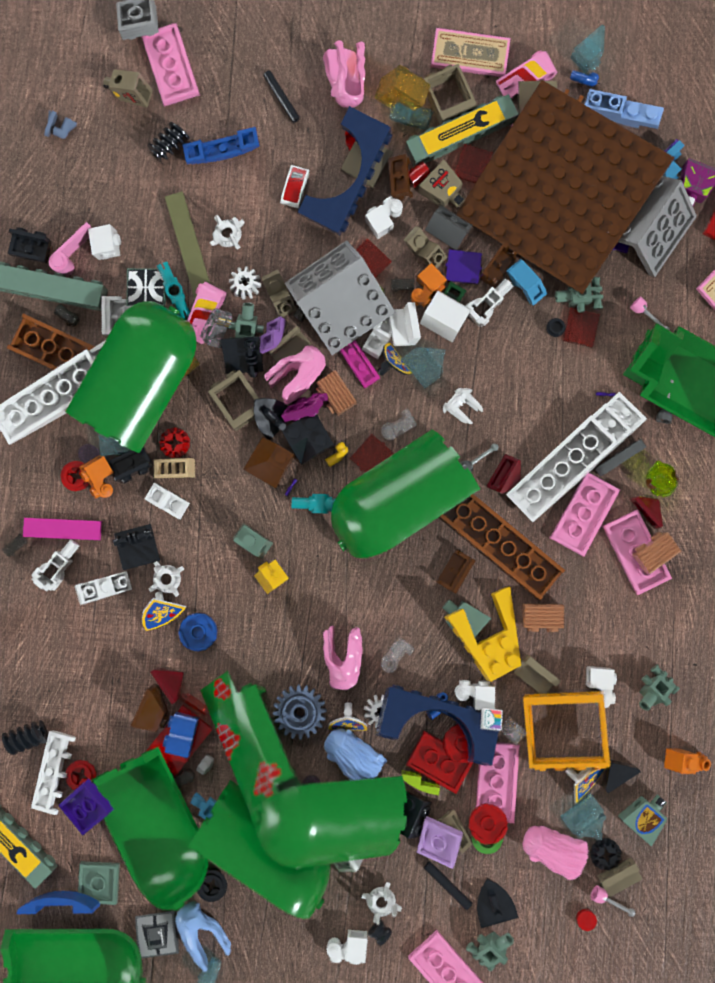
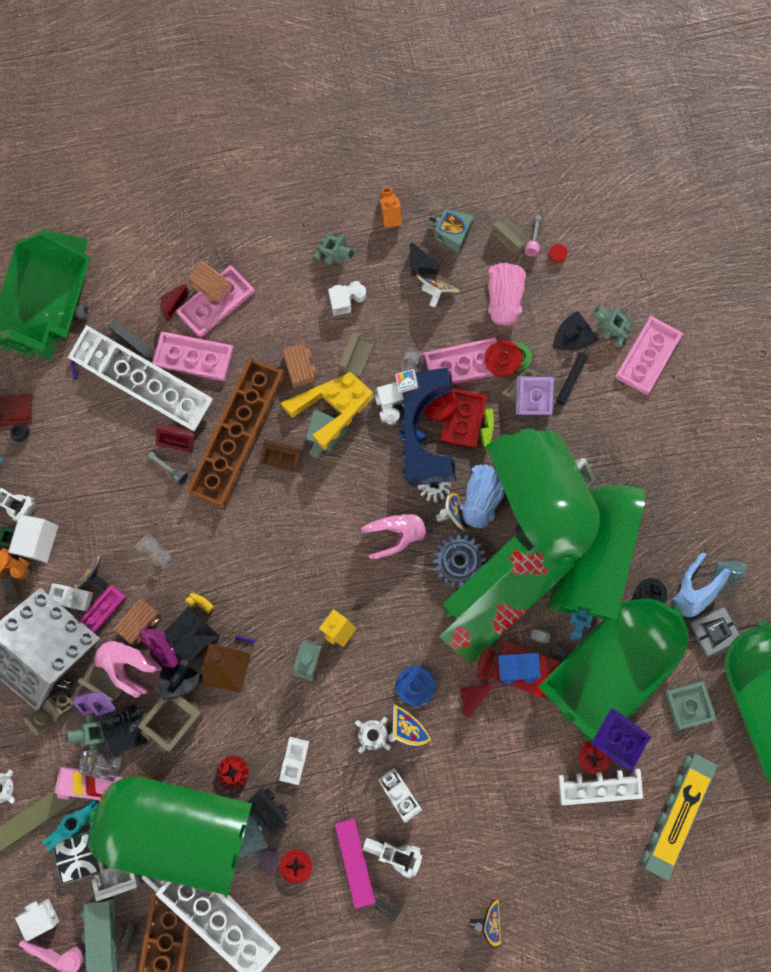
camera: 110 degrees left, 10 degrees down
(25, 739) = (577, 828): black piece -> none
(81, 902) = (713, 713): blue slope -> none
(94, 473) = (286, 845): orange brick -> none
(136, 547) = (350, 776): black hinge -> none
(152, 711) = (507, 704): reddish brown slope -> none
(186, 468) = (254, 747): tan slope -> none
(250, 278) = (53, 752): white gear -> none
(316, 503) = (252, 604): teal pin -> none
(352, 950) = (659, 443): white brick -> none
(371, 453) = (192, 569): clear red piece -> none
(380, 933) = (635, 425): black wheel -> none
(382, 911) = (617, 432): white piece -> none
(391, 658) = (375, 488): clear leg -> none
(400, 496) = (222, 526): green panel -> none
(405, 326) = (52, 574): white panel -> none
(416, 812) = (513, 424): black bracket -> none
(425, 364) = (86, 544): clear light blue slope -> none
(461, 396) = (116, 503): white piece -> none
(562, 763) = (421, 295): light orange window -> none
(585, 818) = (470, 278): clear light blue slope -> none
(598, 849) = (492, 259): black gear -> none
(662, 479) = (140, 297): clear neon green hair -> none

